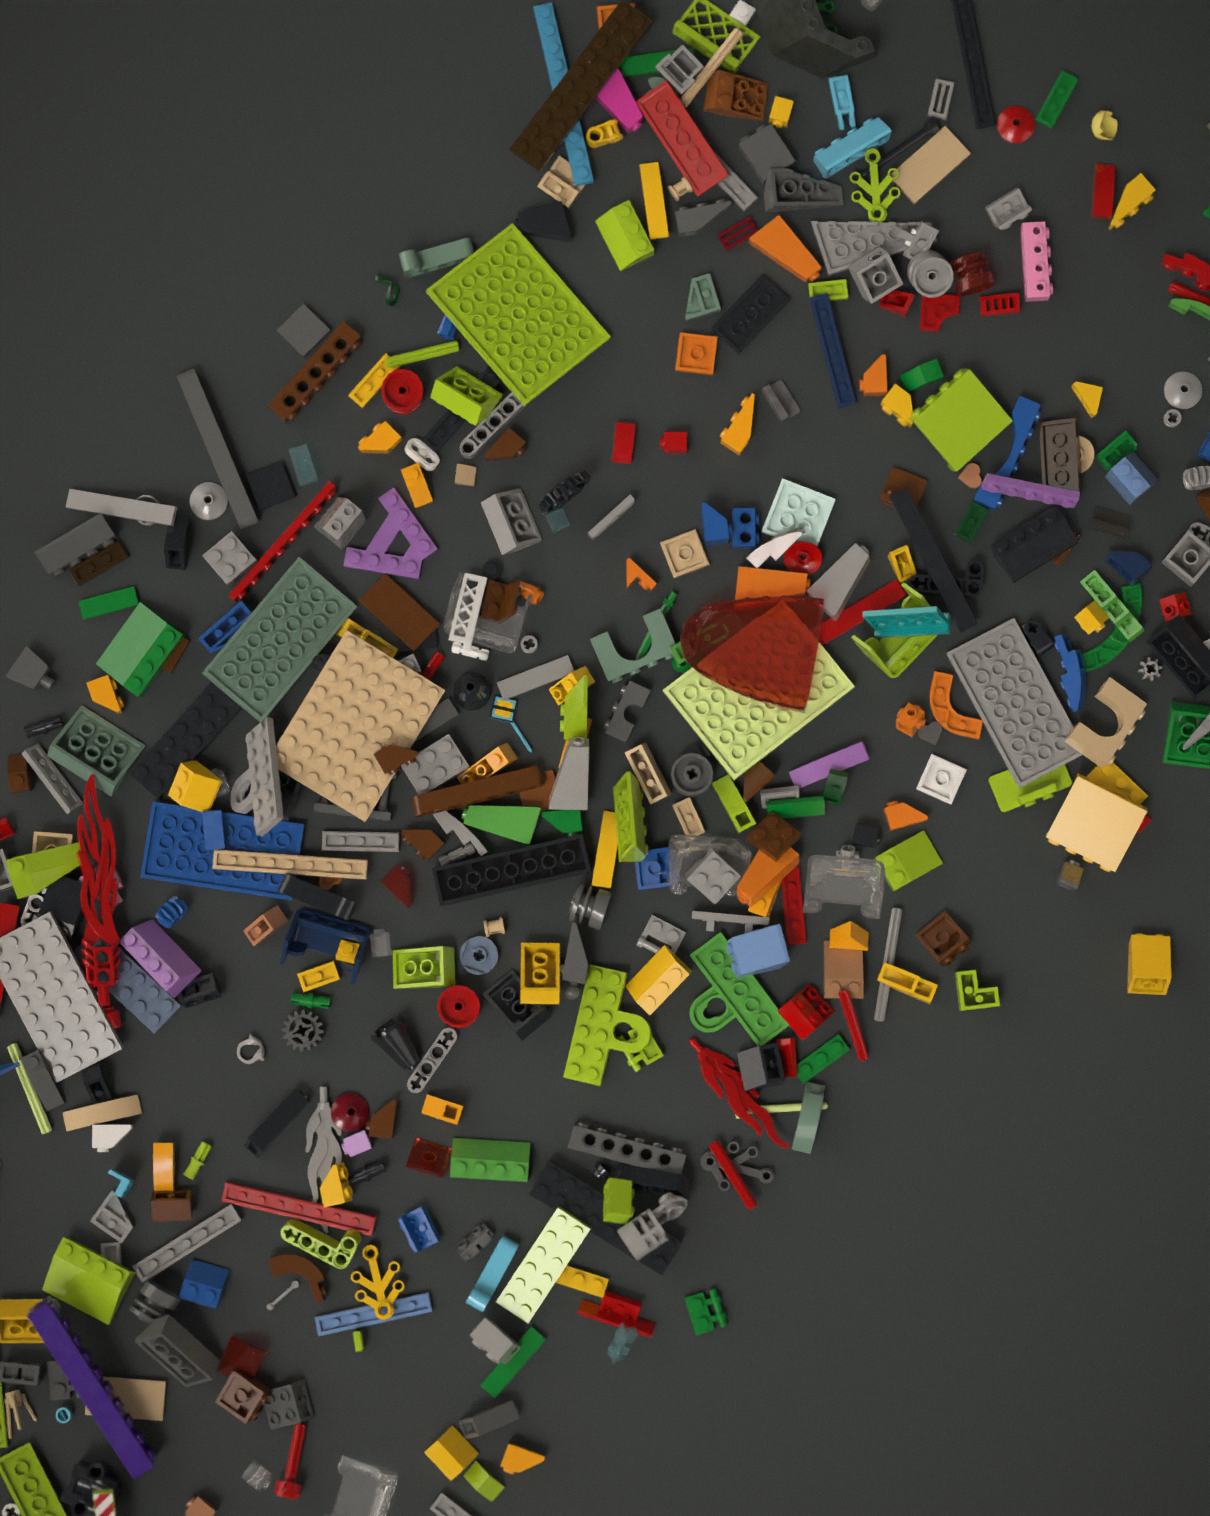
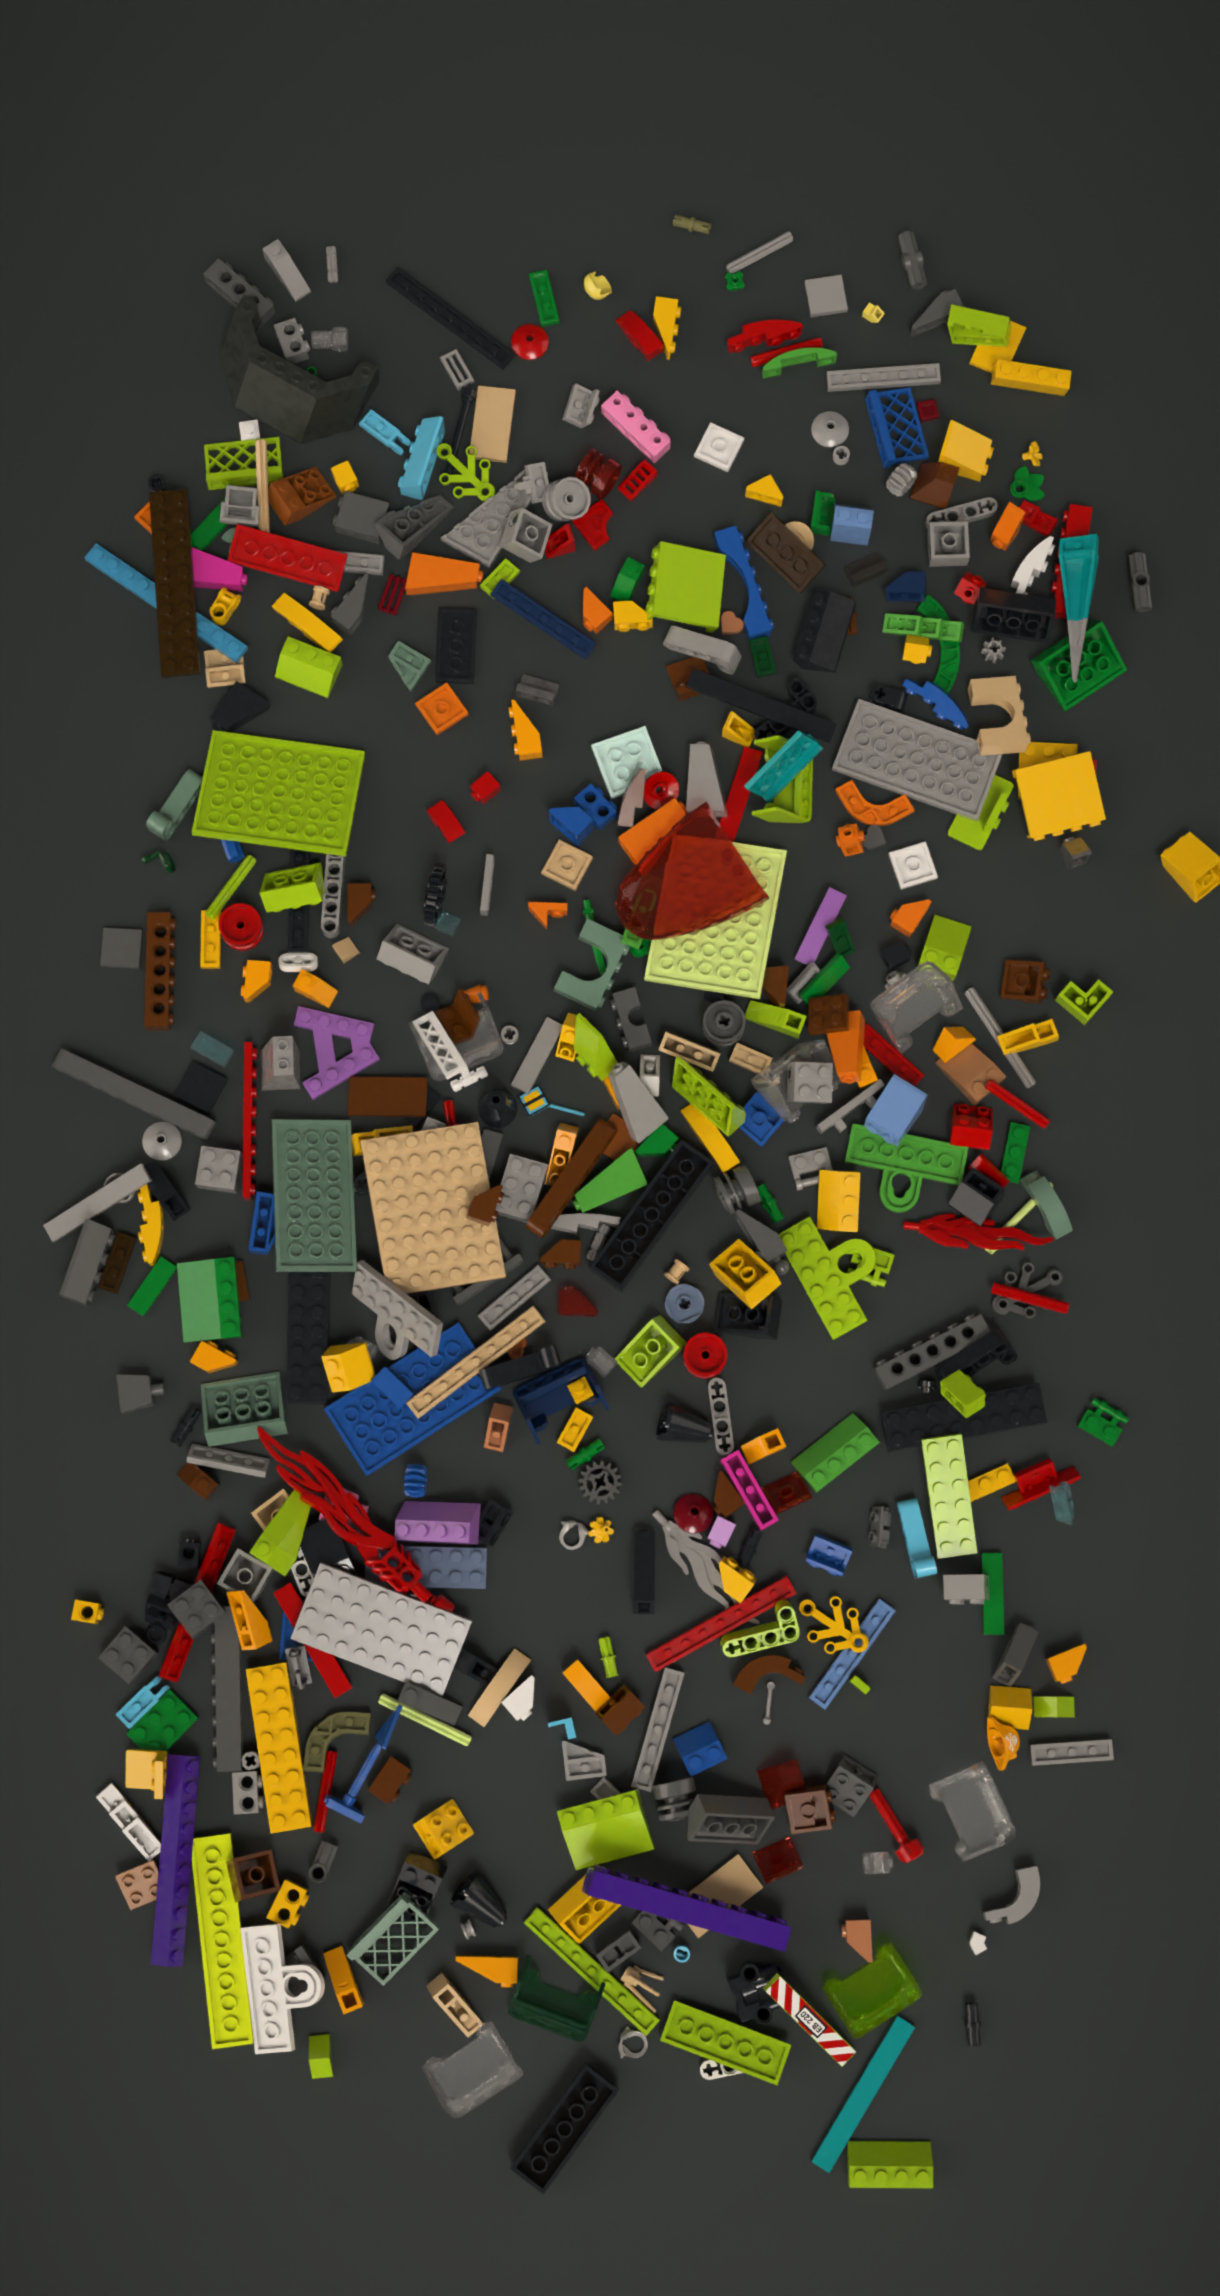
camera: 45 degrees left, 5 degrees down
(142, 564) = (152, 1232): none -> yellow slope
(188, 1411) = (777, 1860): none -> clear red slope
(273, 1065) = (600, 1530): none -> yellow plant
(403, 1132) = (749, 1490): none -> dark pink brick
(423, 1473) = (1002, 1742): none -> light orange hat
(604, 764) = (650, 1072): none -> white slope
(607, 936) = (769, 1204): none -> green pin
(645, 1231) = (1006, 1388): light grey cylinder -> none
(932, 478) = (704, 647): none -> light grey beam
(1030, 490) = (786, 593): medium lavender plate -> none
(1085, 331) = (719, 447): none -> white tile

